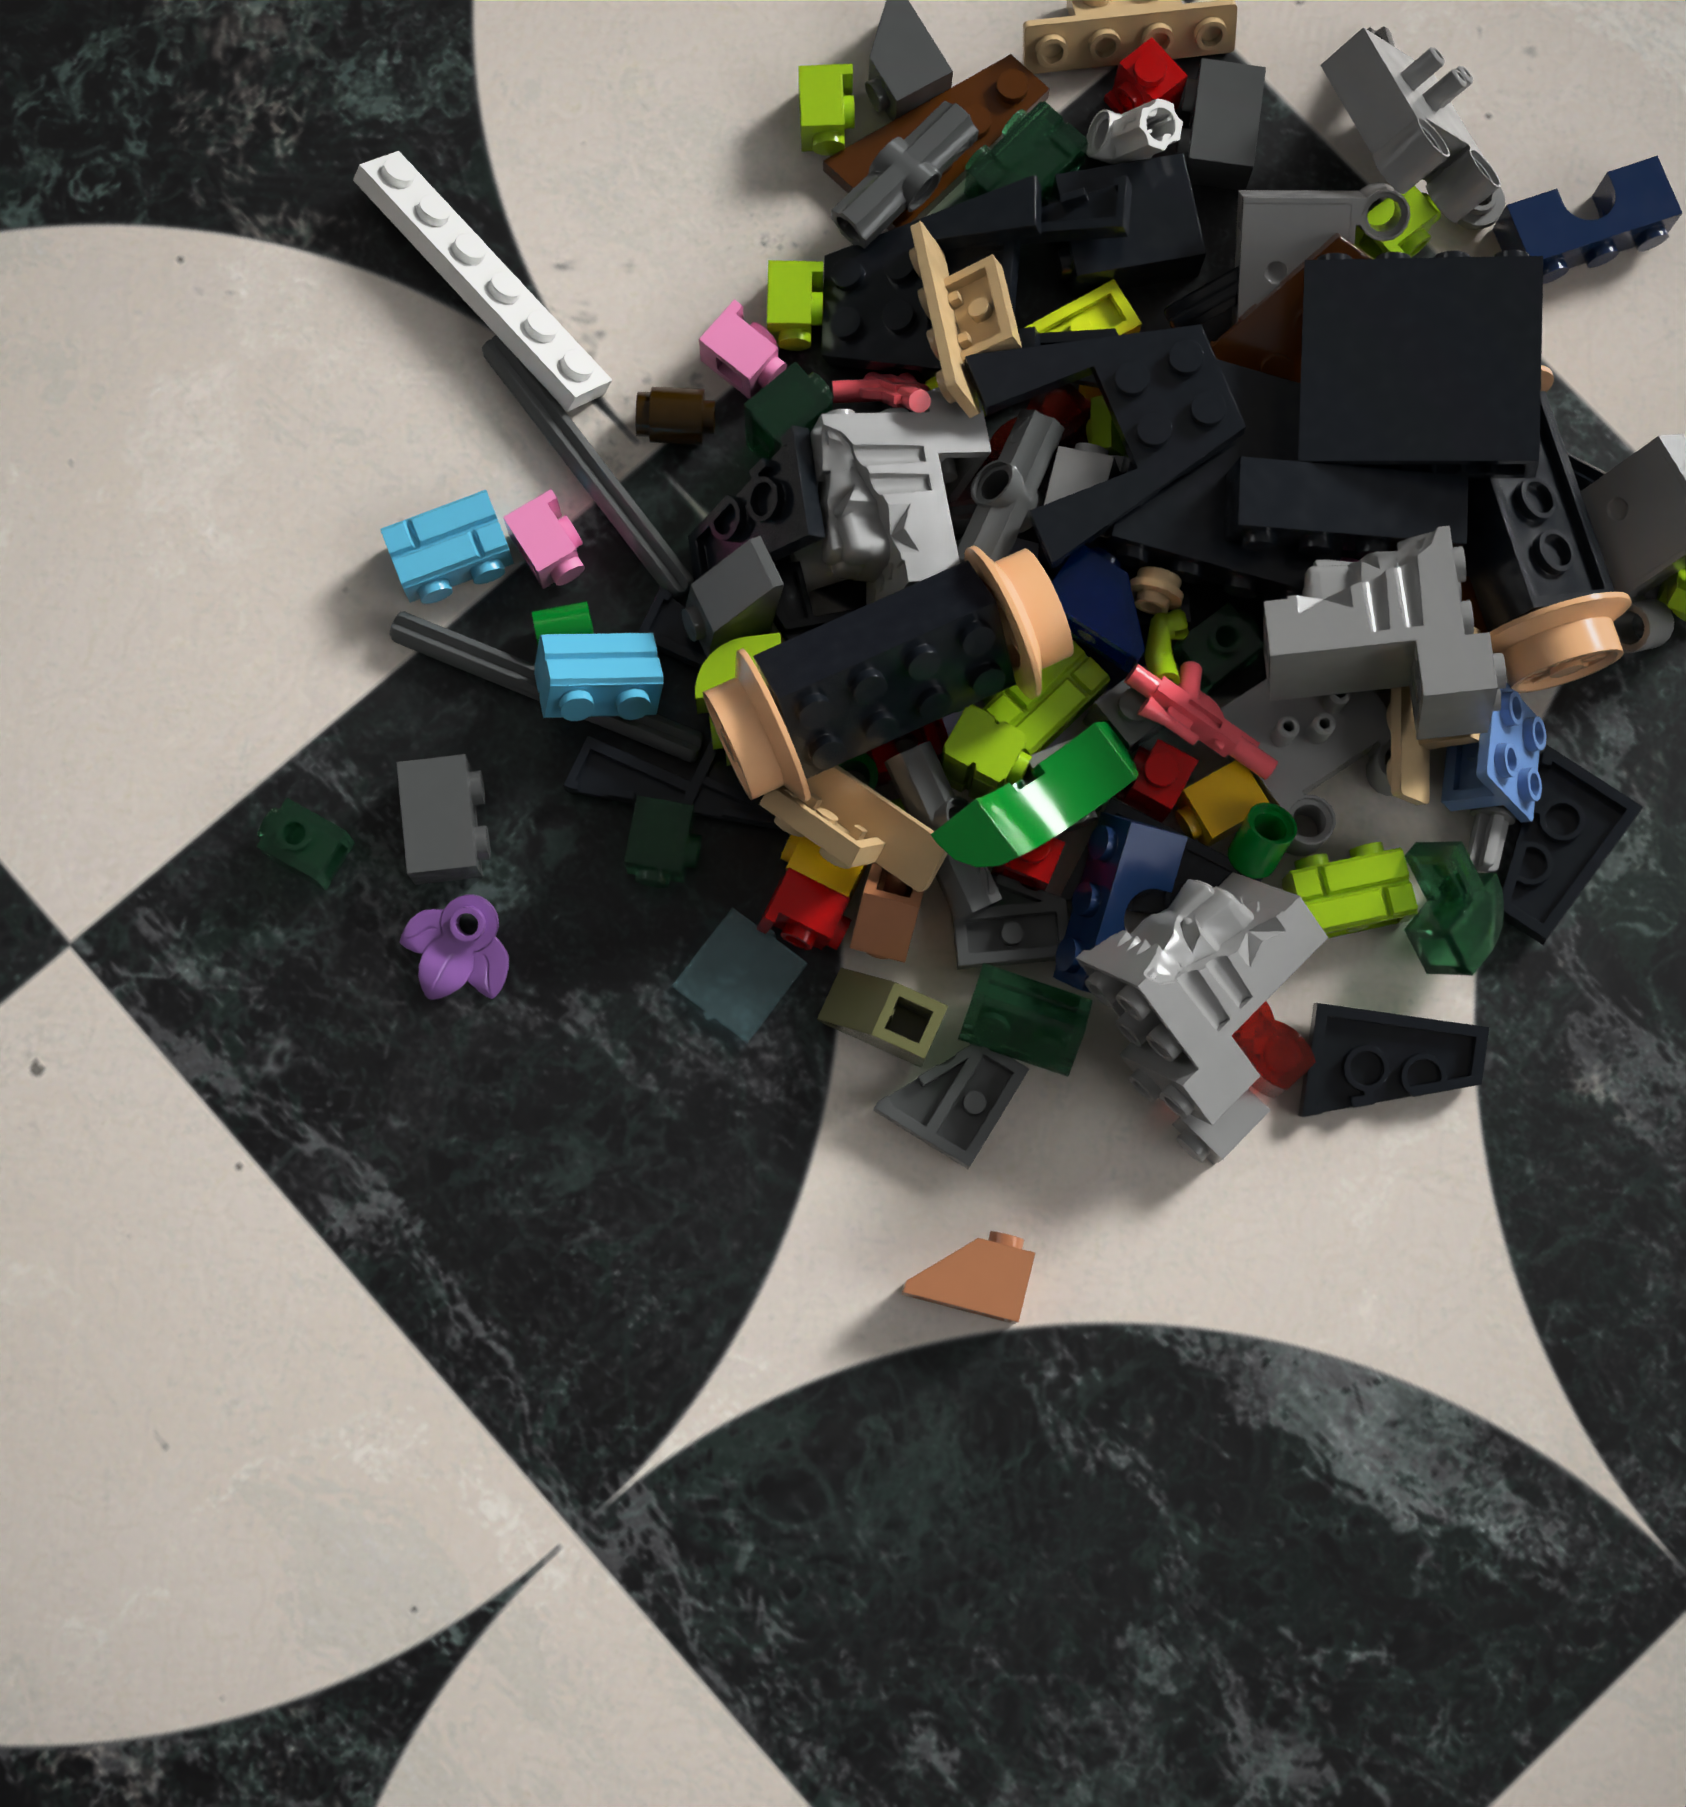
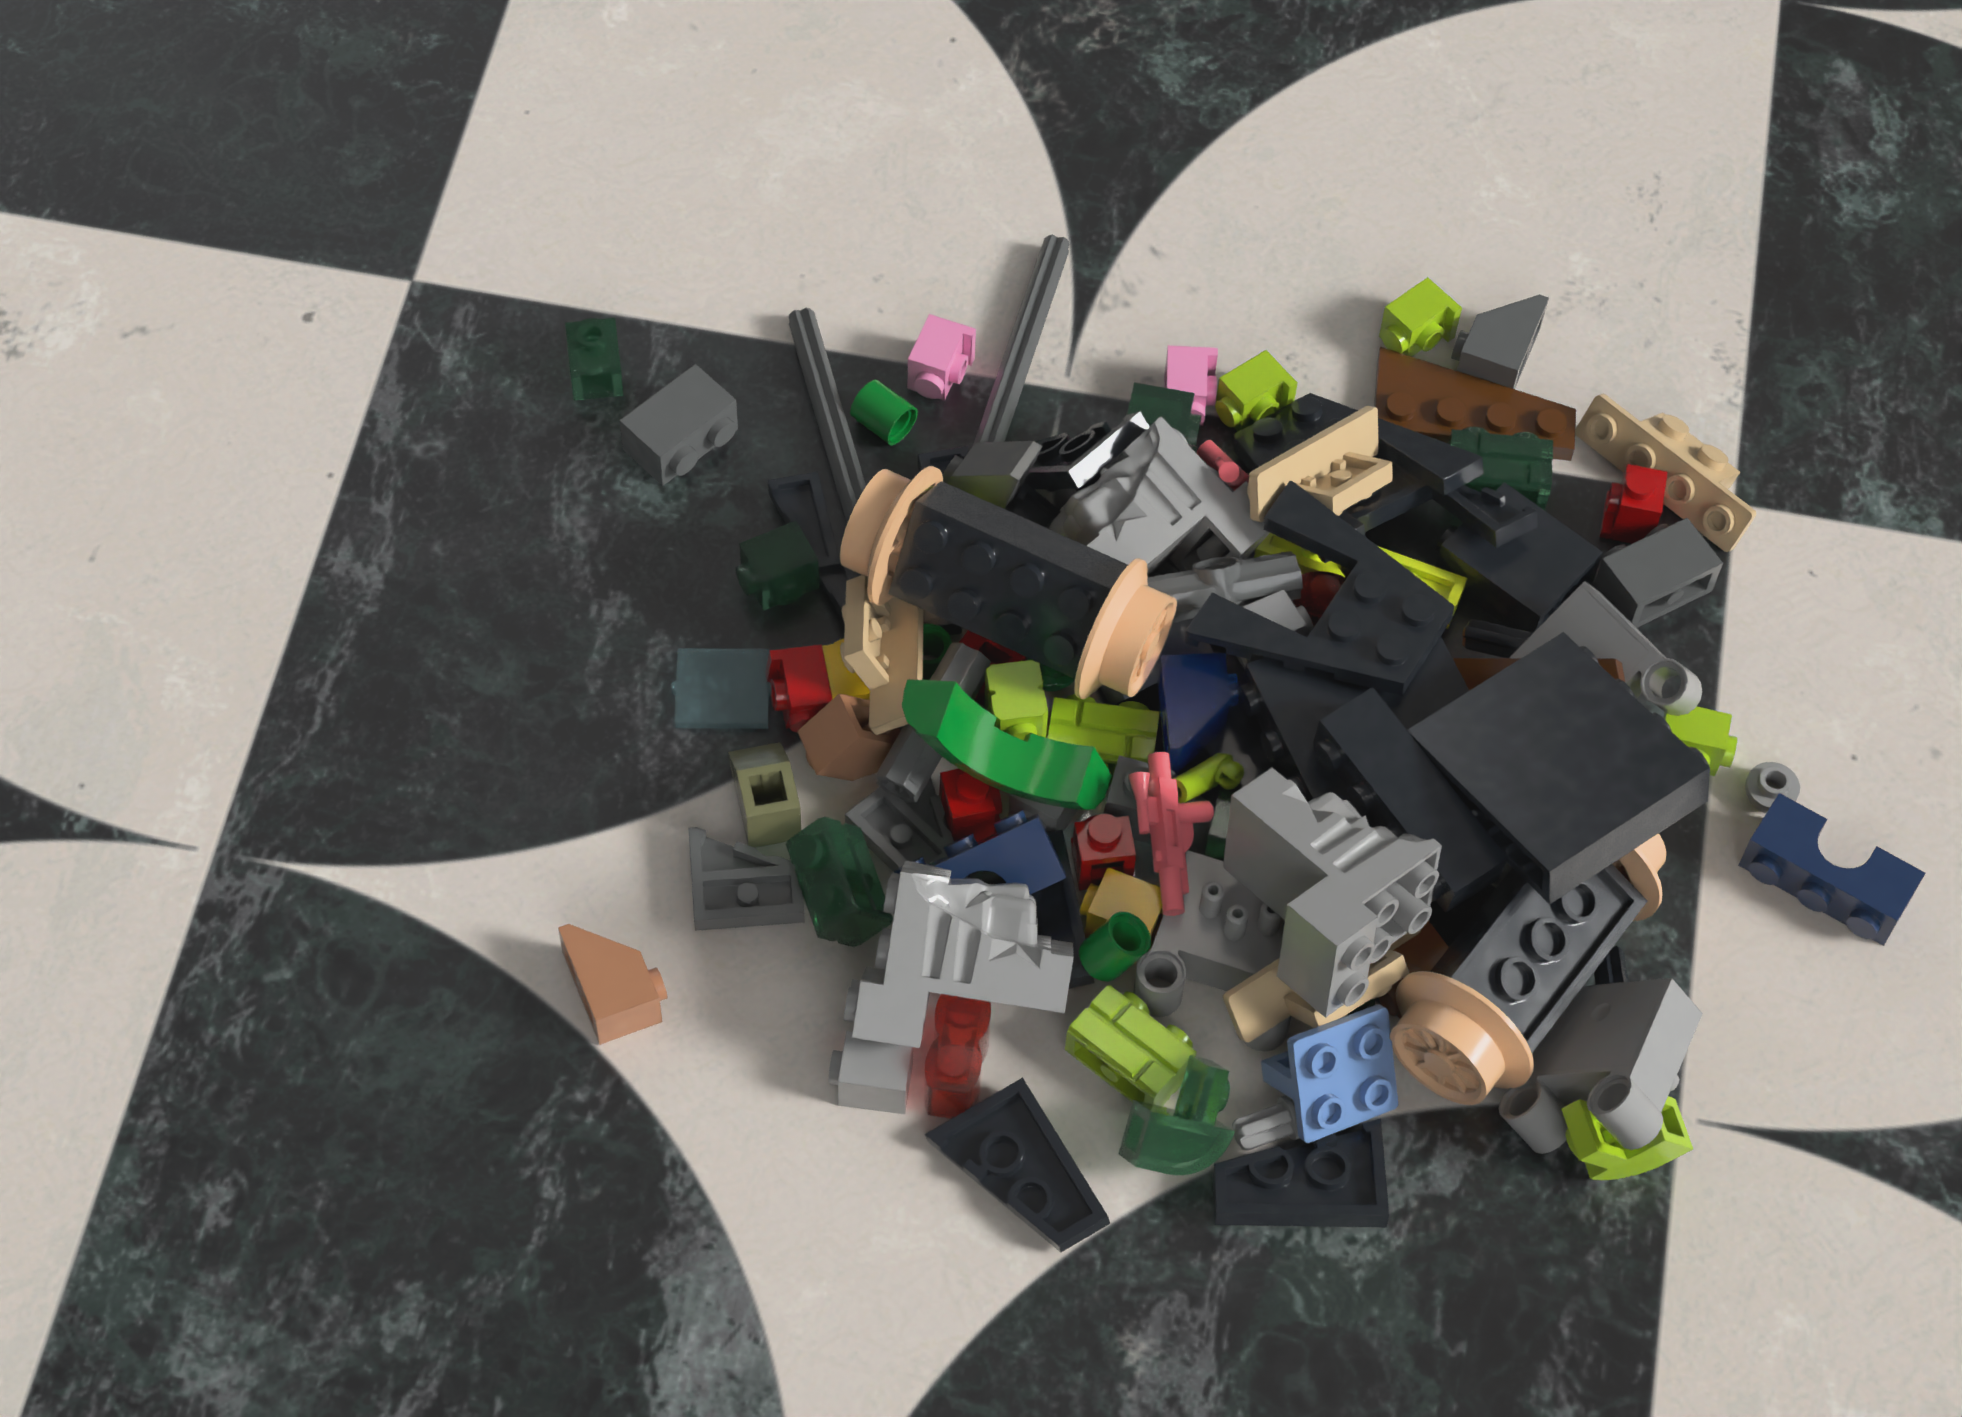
camera: 55 degrees right, 20 degrees down
(448, 548) = (880, 304): medium azure brick -> none
(454, 956) = (591, 501): medium lavender plate -> none
(482, 280) = (1095, 207): white plate -> none
(598, 675) = (862, 437): medium azure brick -> none
(674, 415) = (1102, 375): dark brown brick -> none
(904, 174) = (1411, 389): dark grey piece -> none
(1134, 134) = (1585, 508): white piece -> none
(1156, 590) = (1240, 737): tan plate -> none
(1411, 120) = (1774, 669): light grey piece -> none

